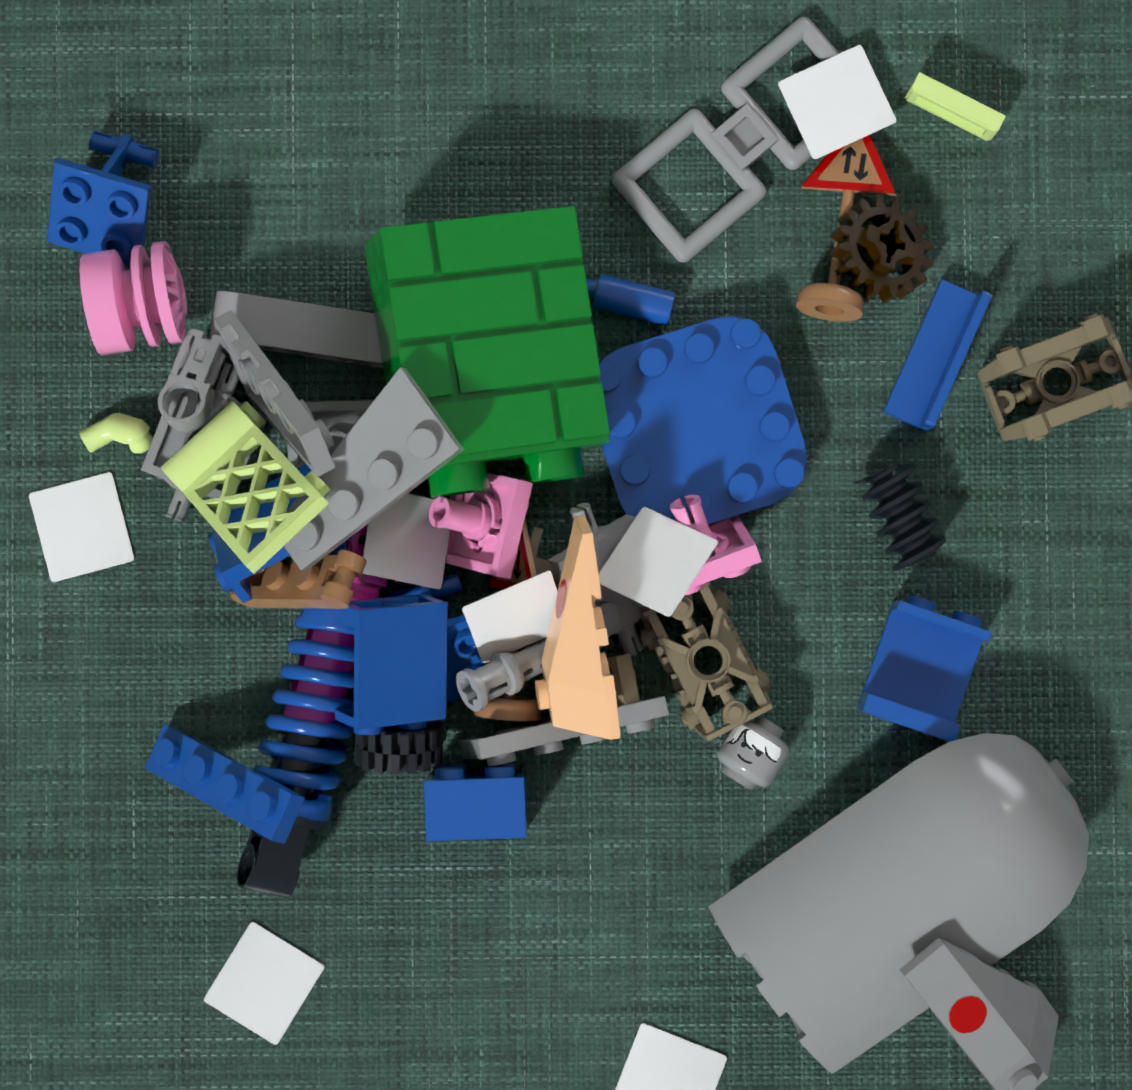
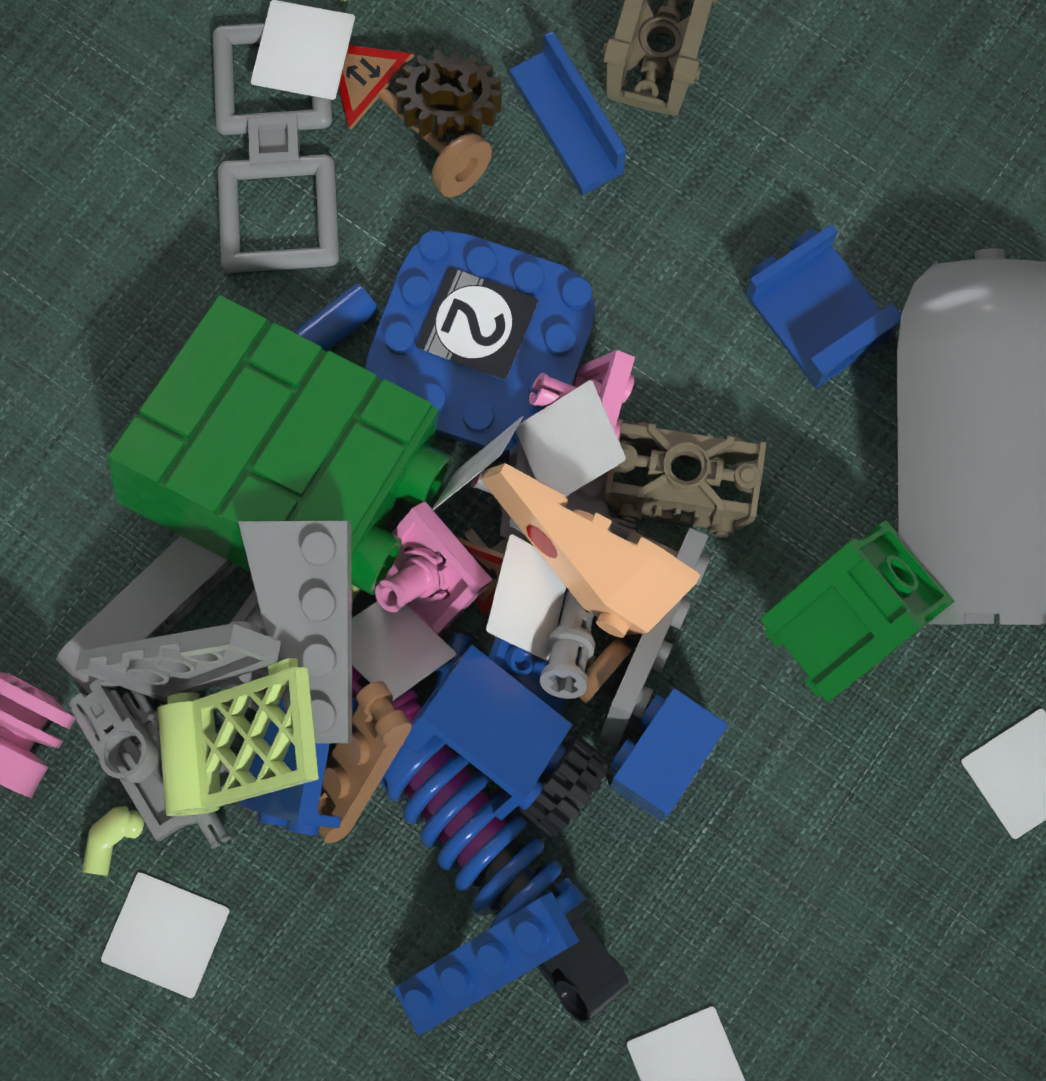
camera: 50 degrees left, 10 degrees down
(592, 501) = (478, 463): none -> white sticker
(687, 871) = (855, 610): none -> green container
(708, 414) = (477, 323): none -> sticker
(753, 753) = (793, 492): light grey head -> none
(902, 514) = (679, 231): black piece -> none

